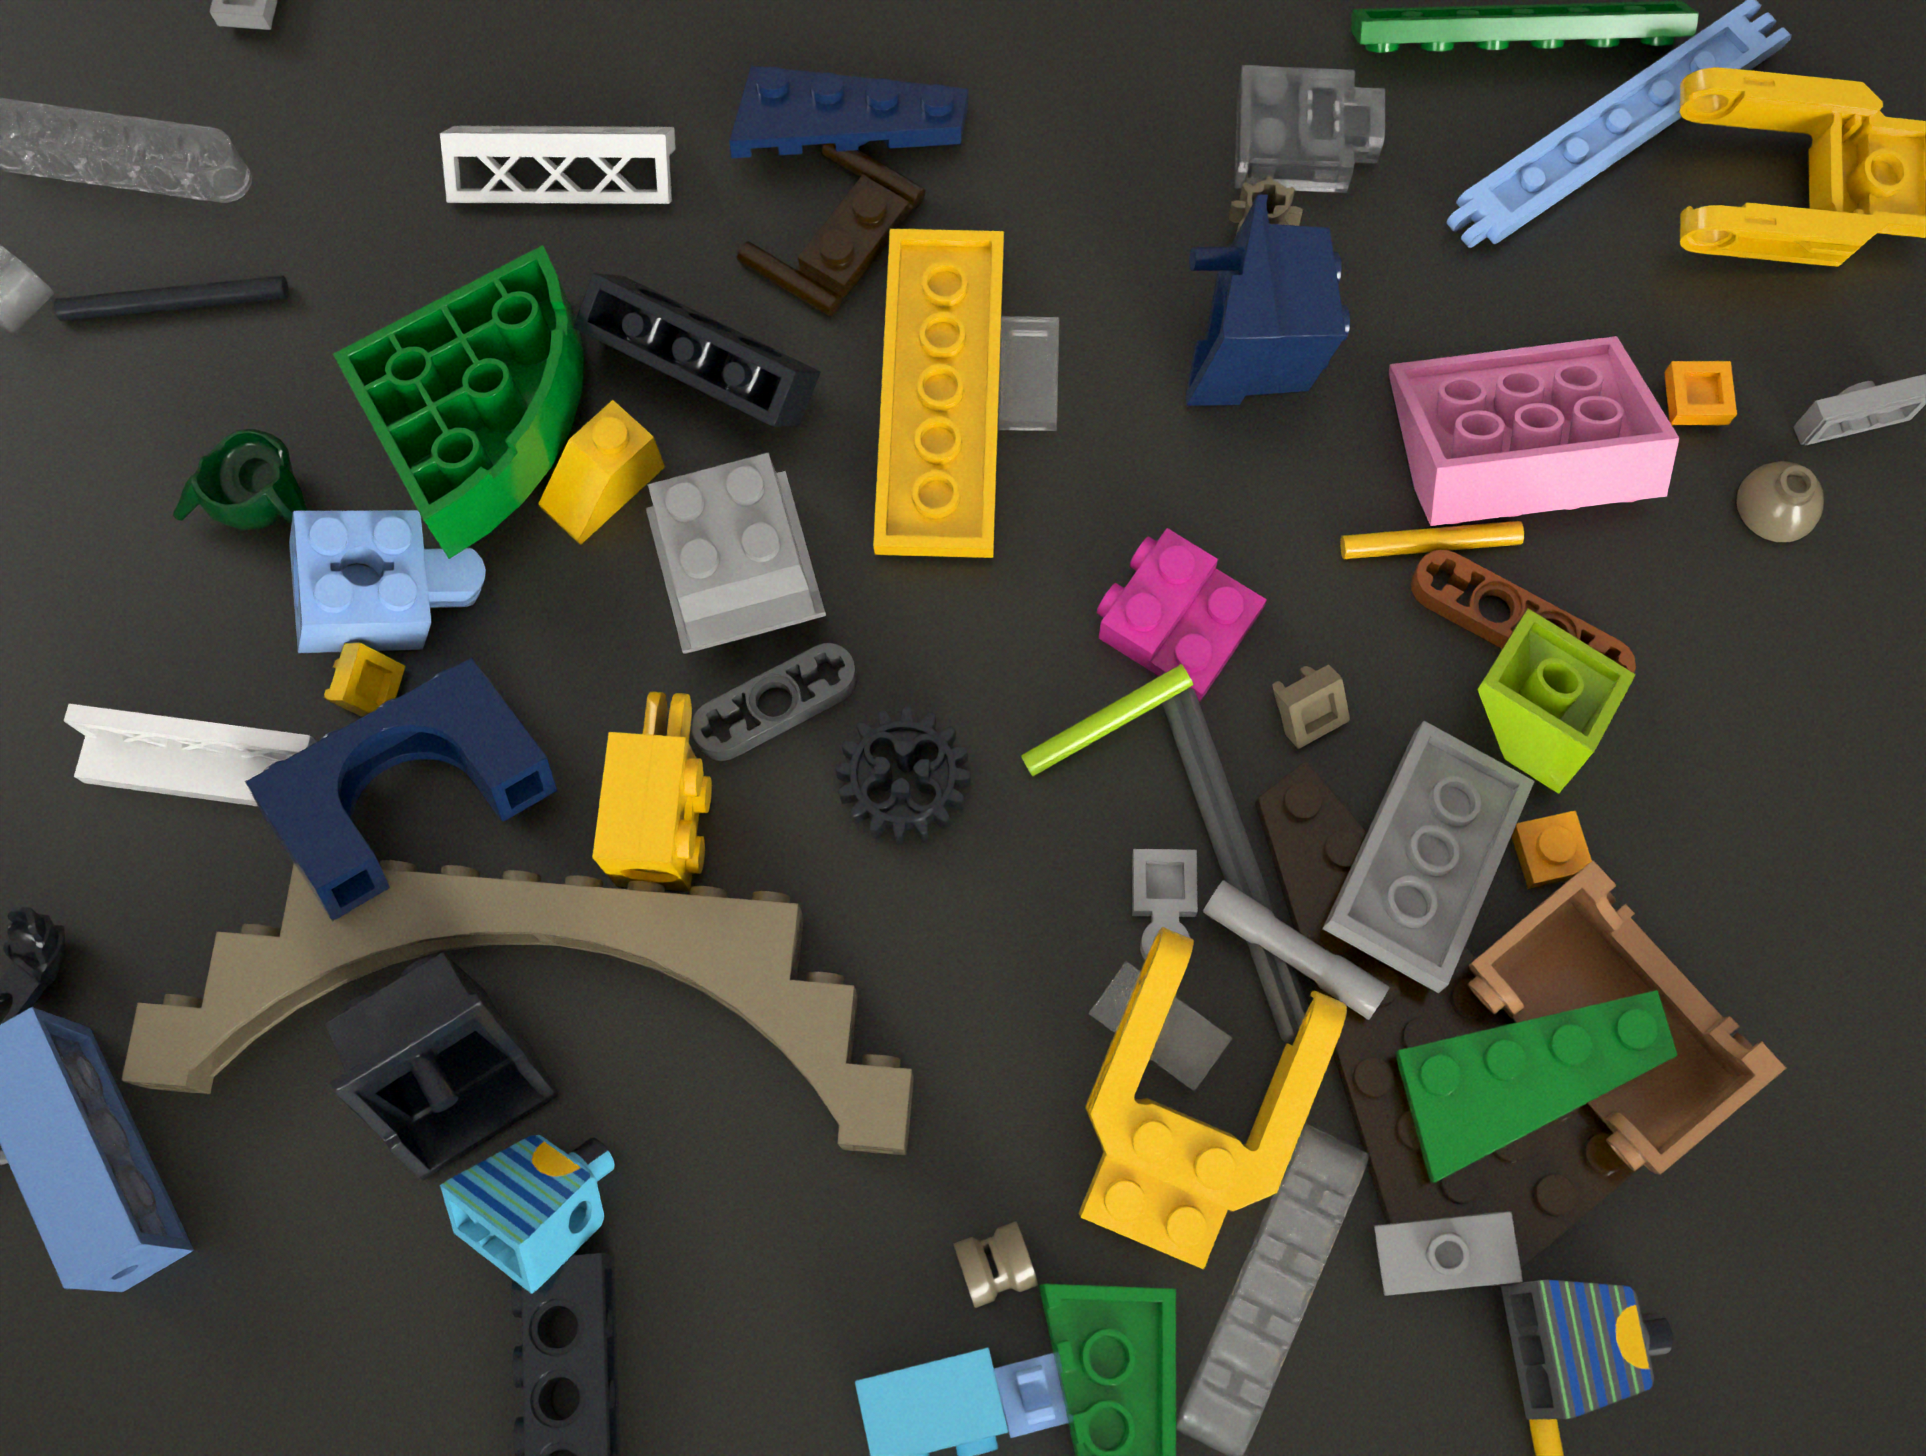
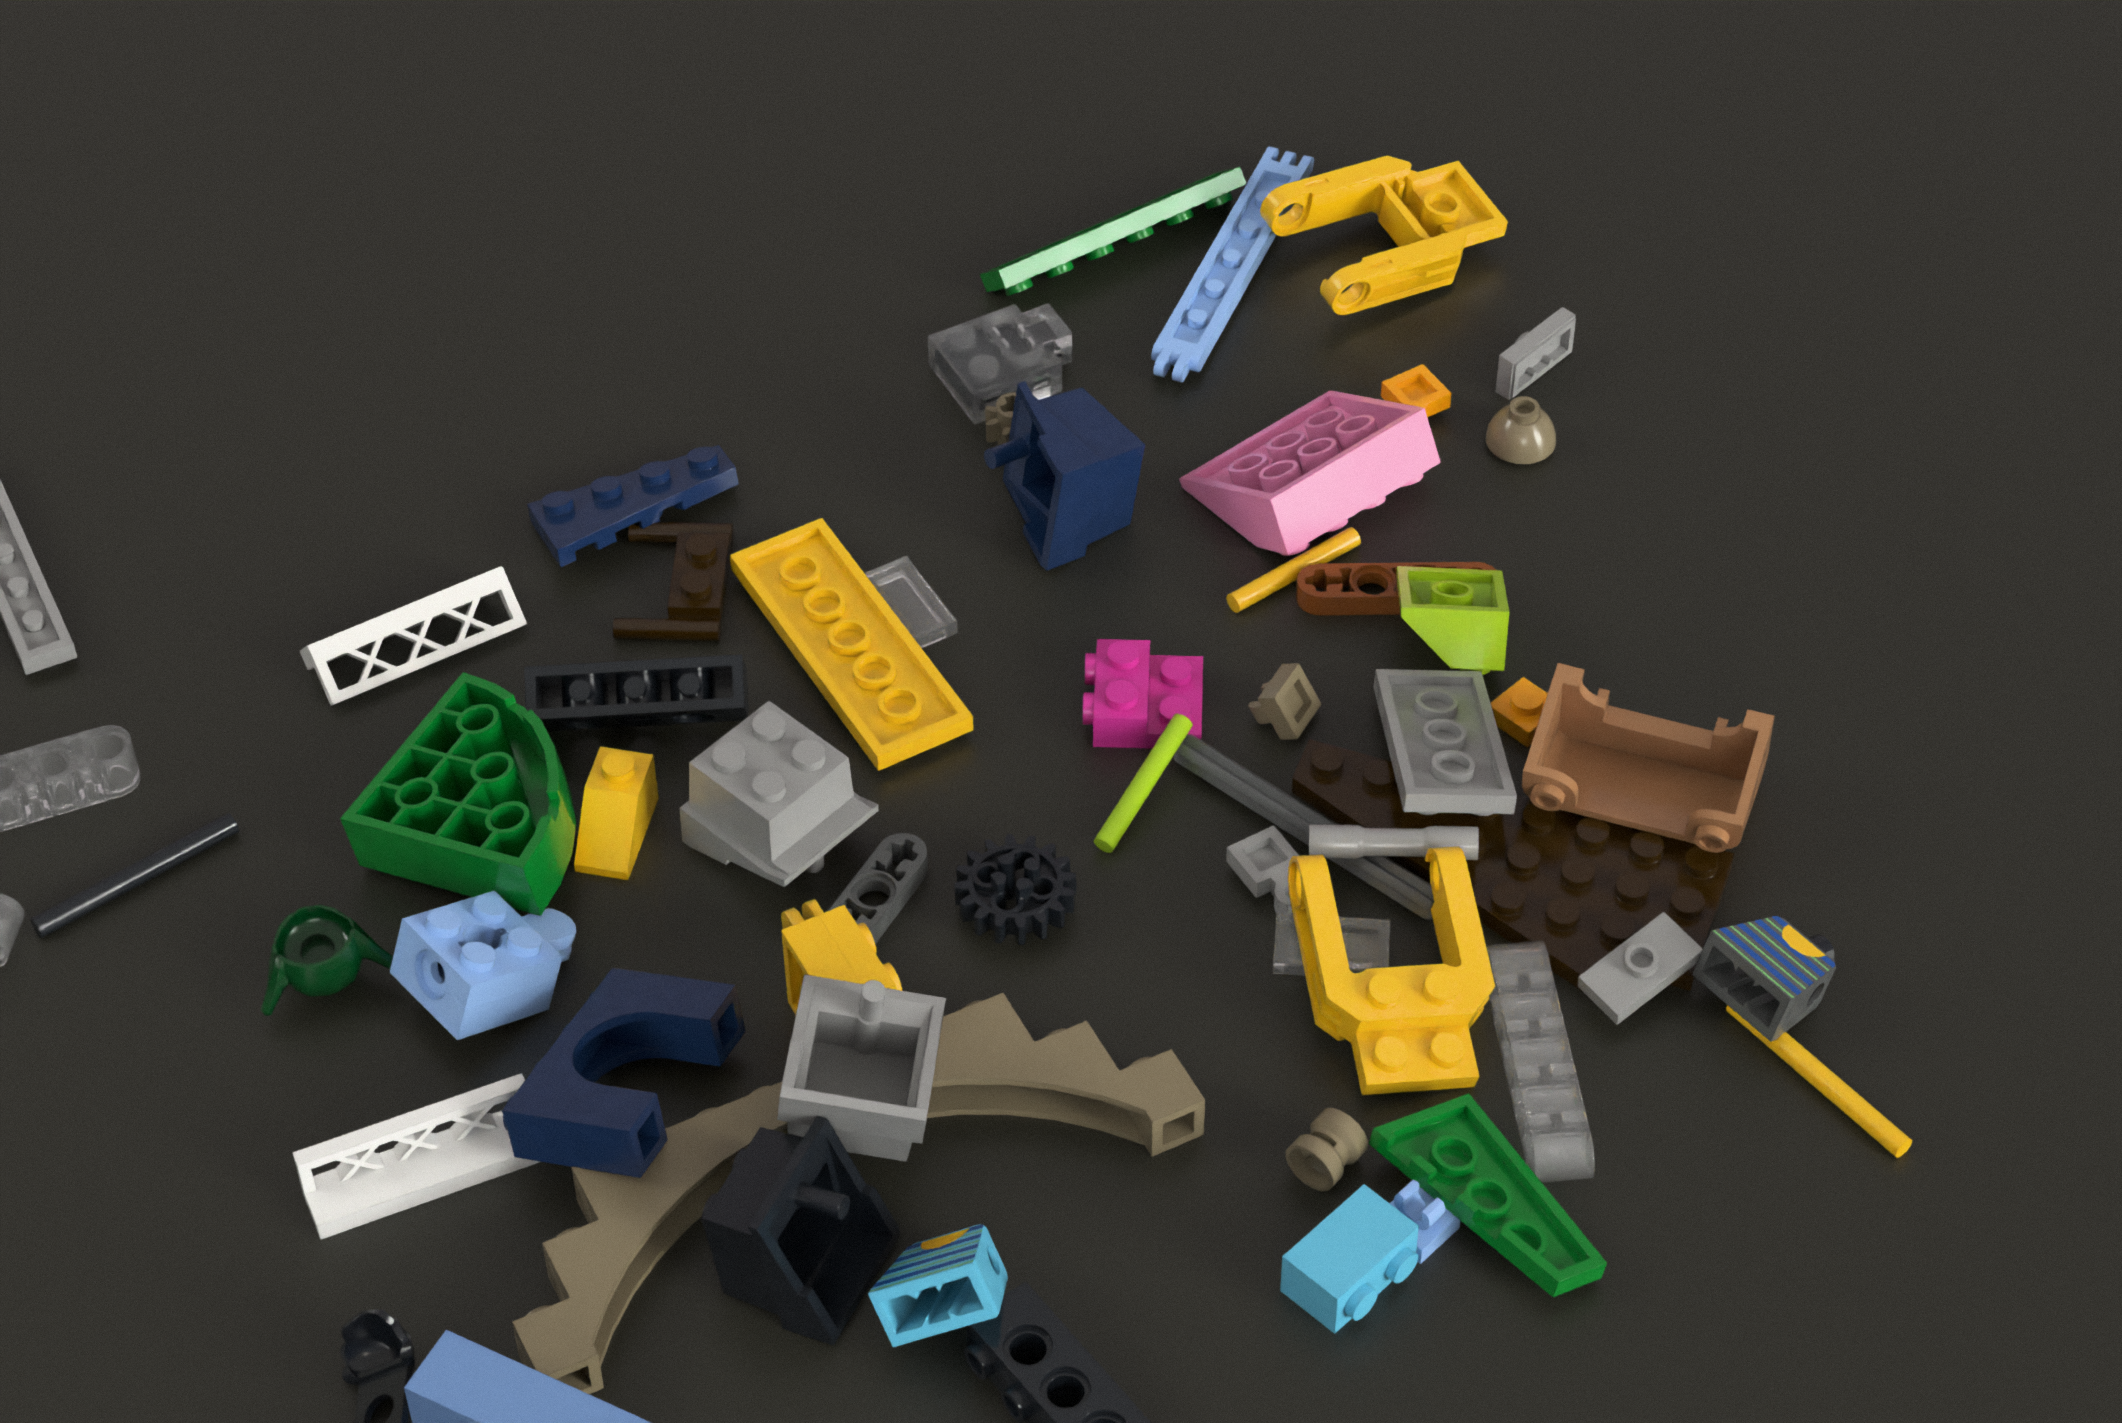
camera: 35 degrees left, 25 degrees down
(363, 679) = (521, 1036): yellow tile -> none
(561, 948) = (862, 1063): none -> light grey piece
(1514, 1078) = (1600, 842): green wing -> none

